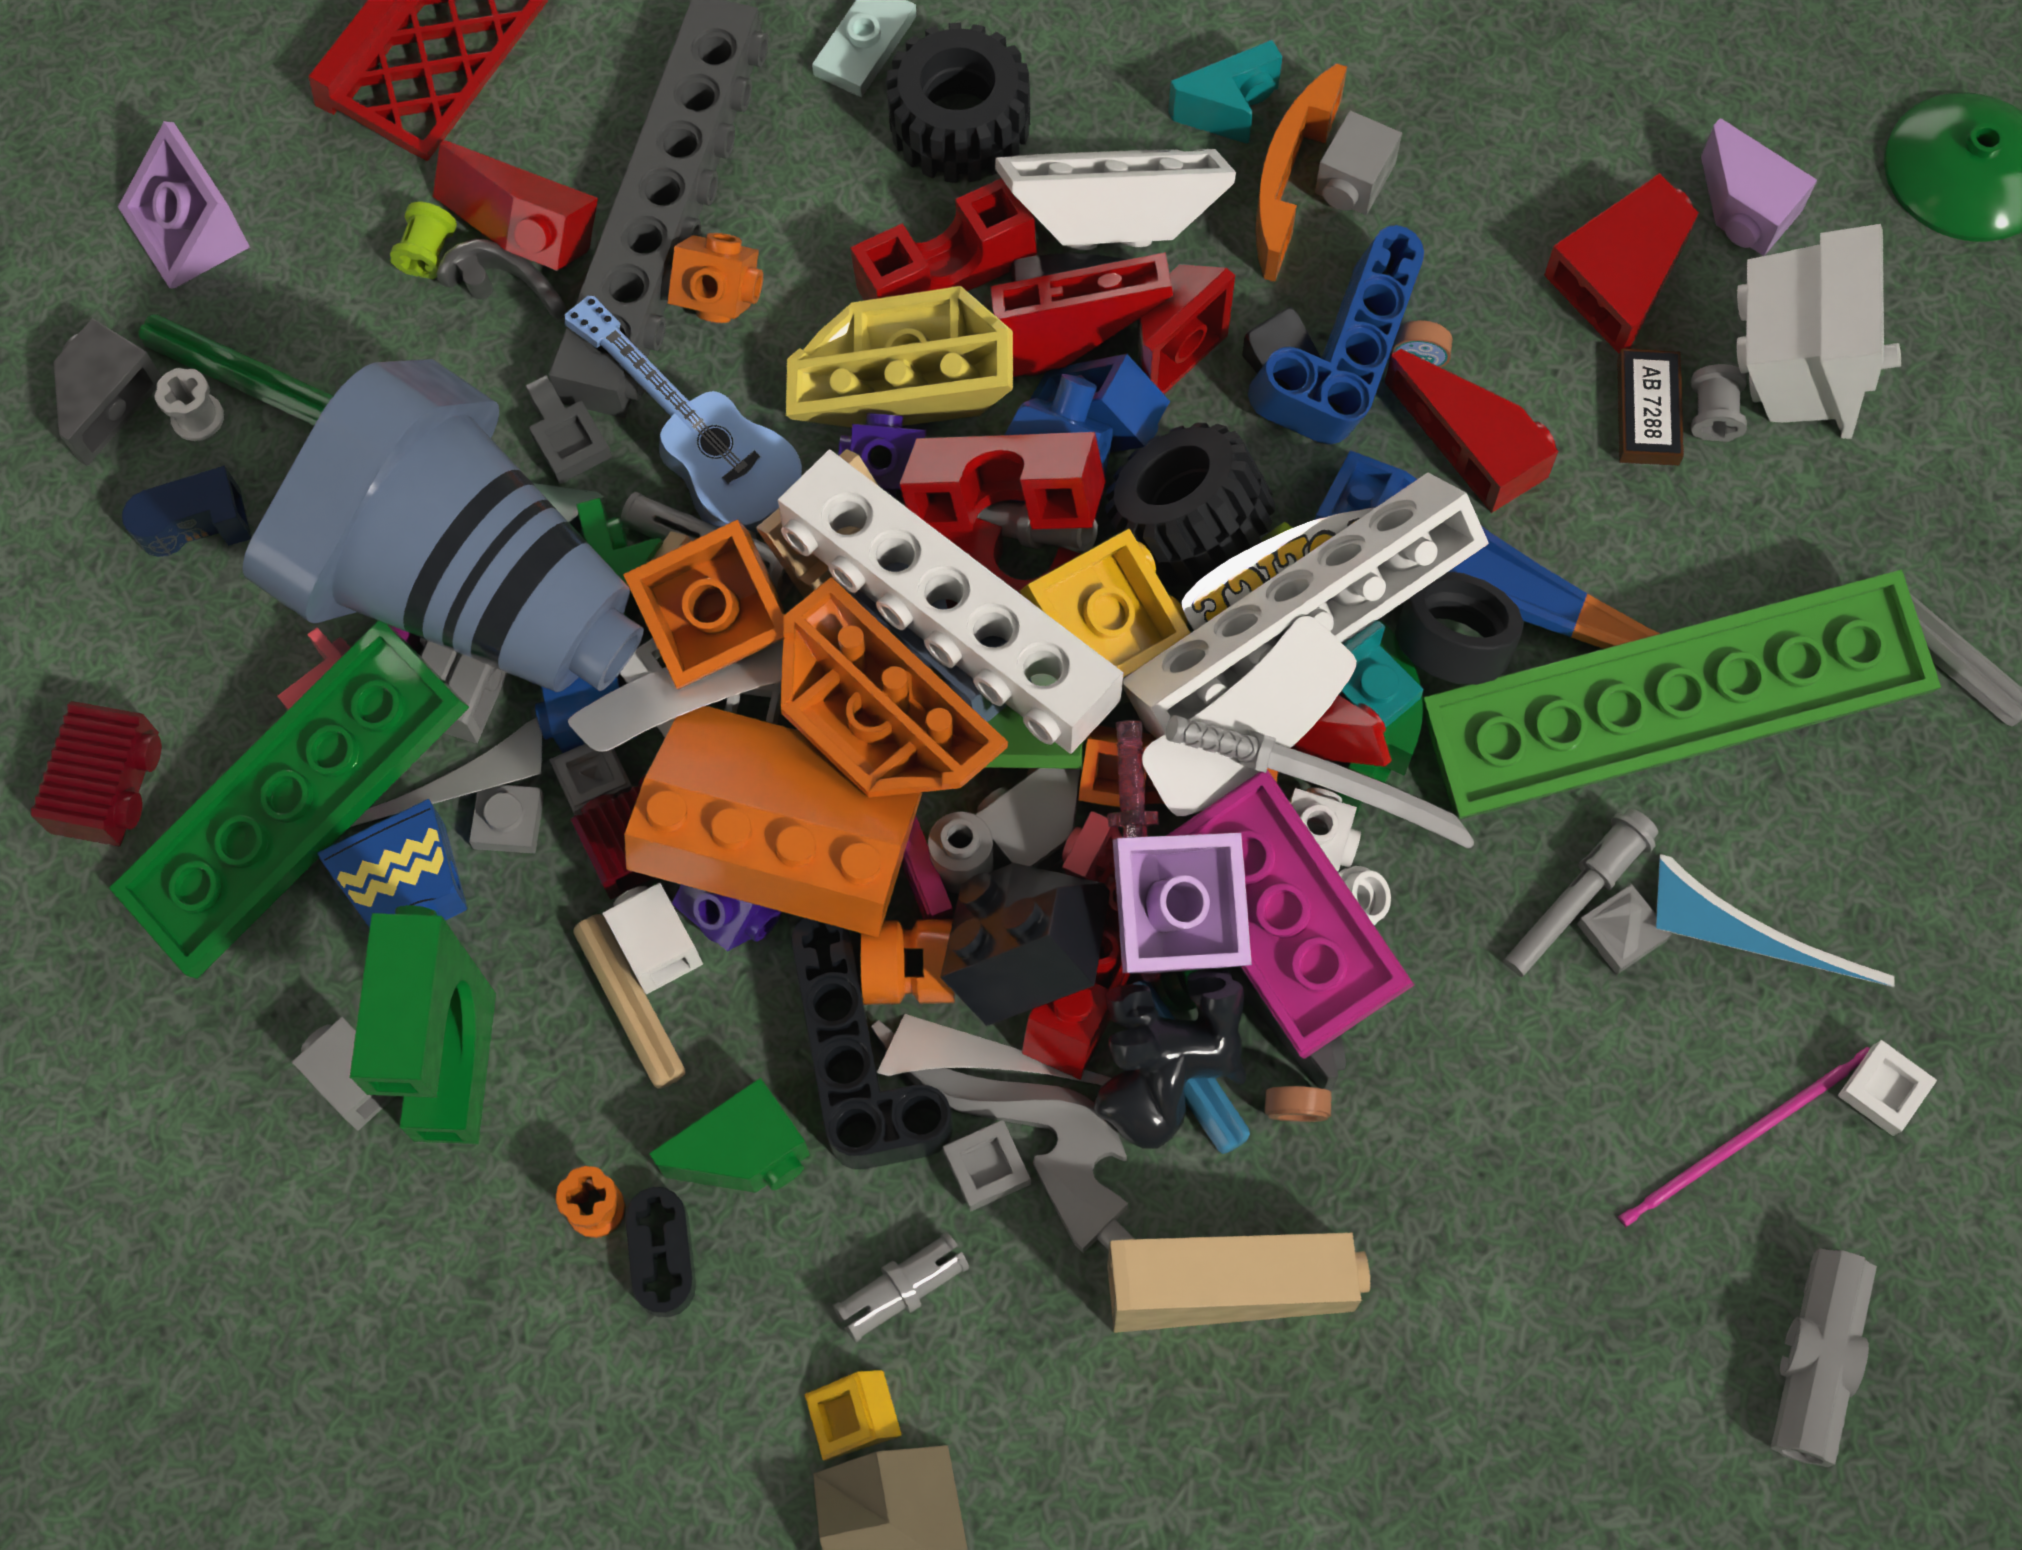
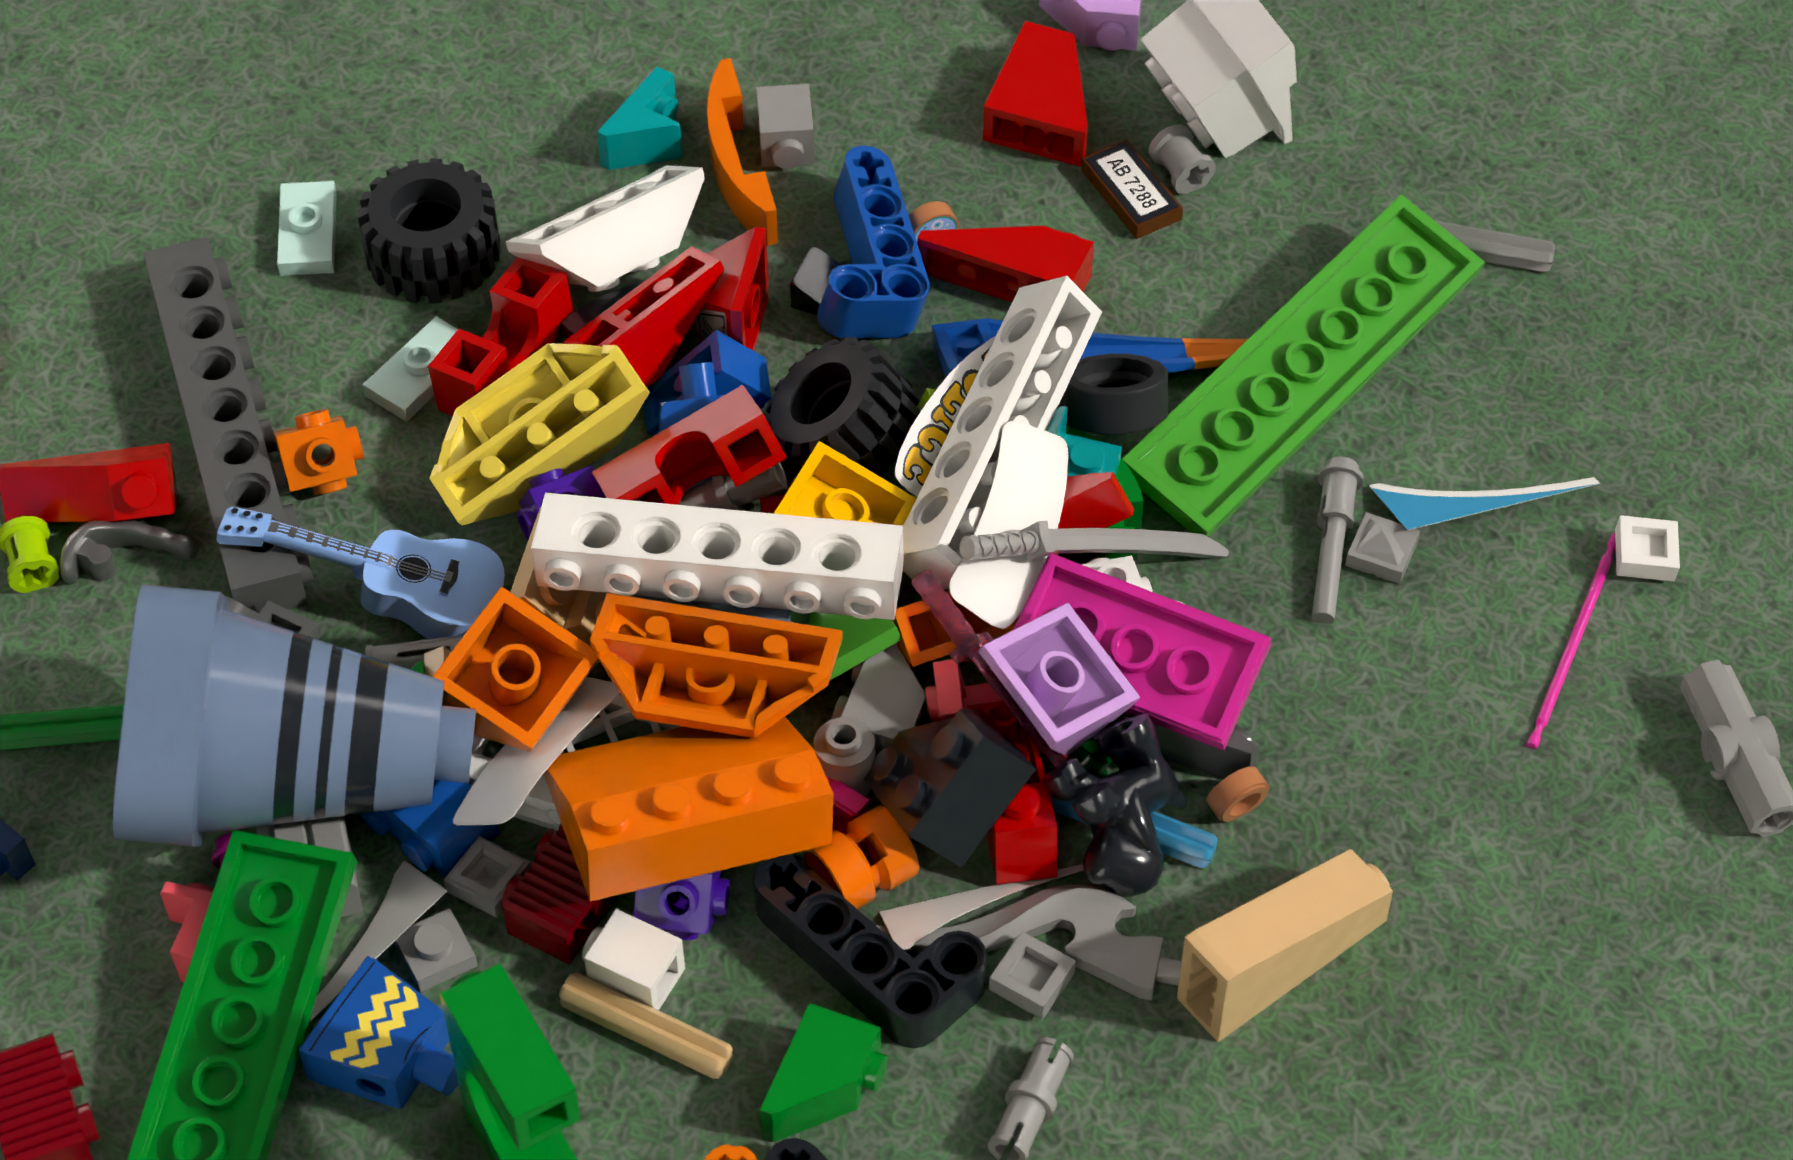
camera: 35 degrees left, 15 degrees down
(834, 237) = (404, 380): none -> light aqua plate

